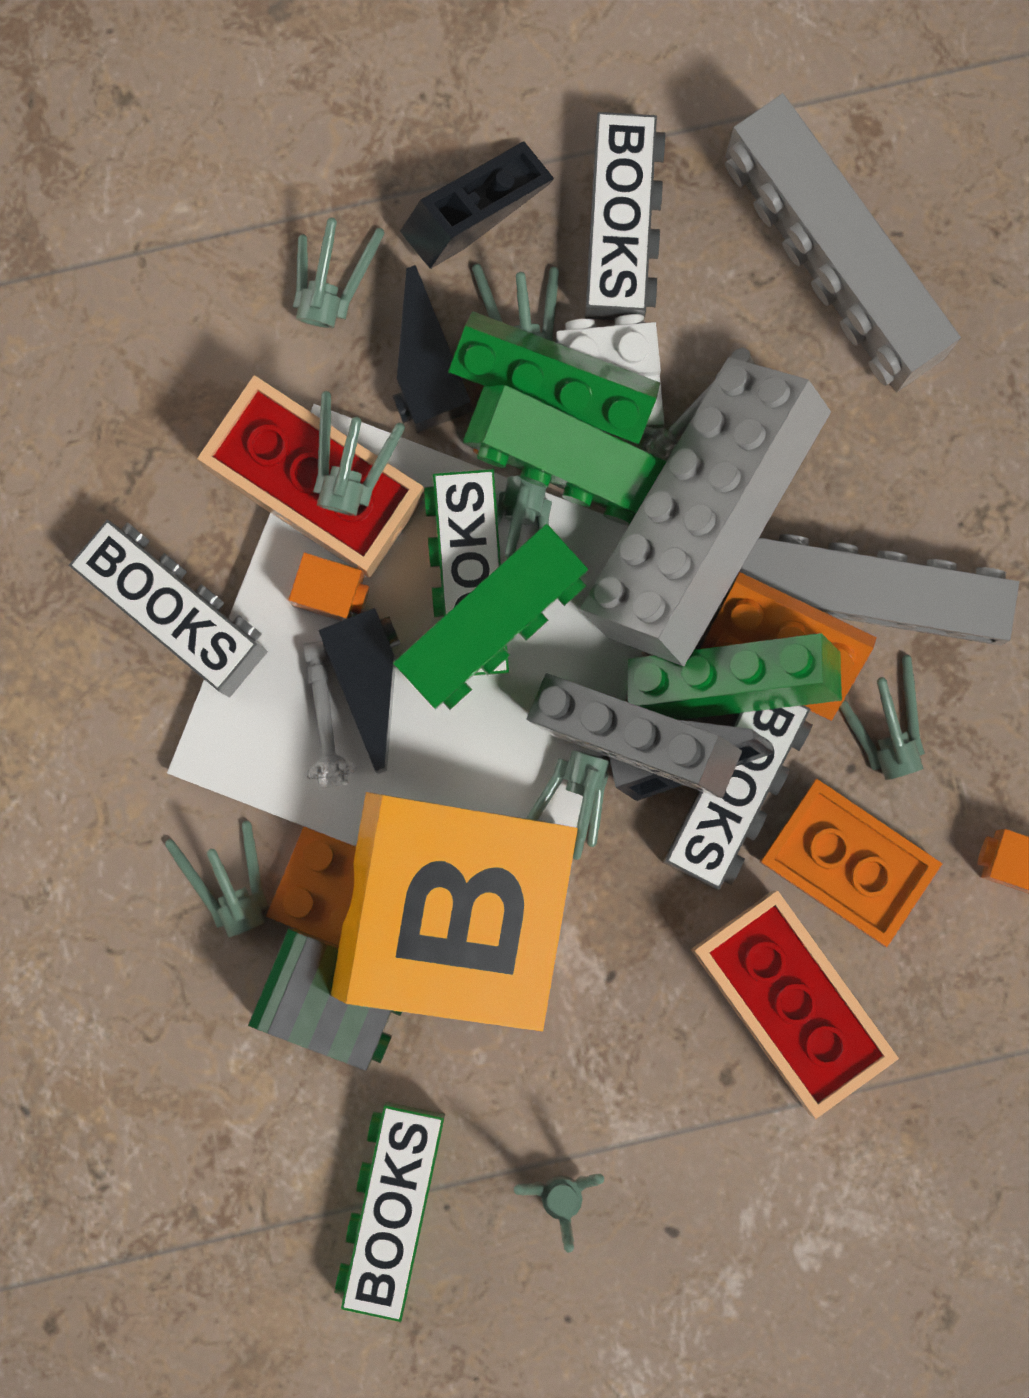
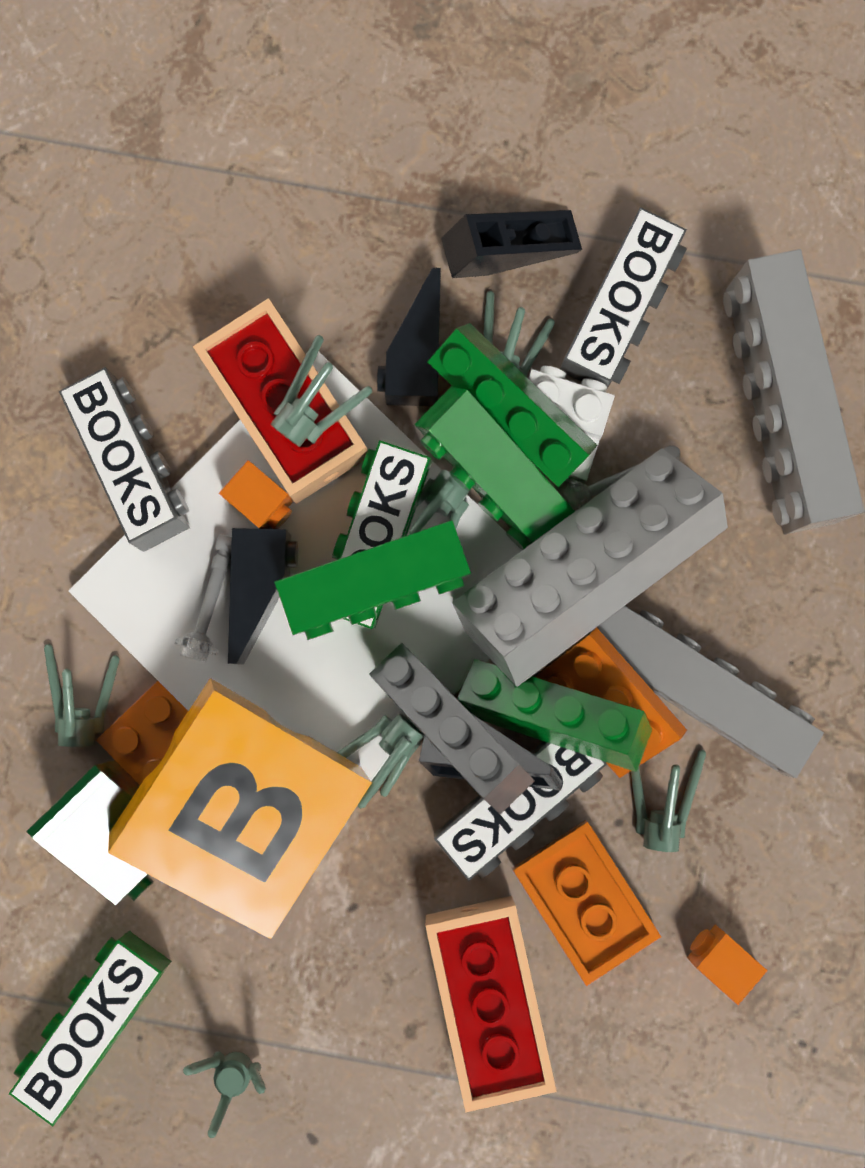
camera: 25 degrees right, 0 degrees up
(319, 302) = (352, 265): sand green plant -> none

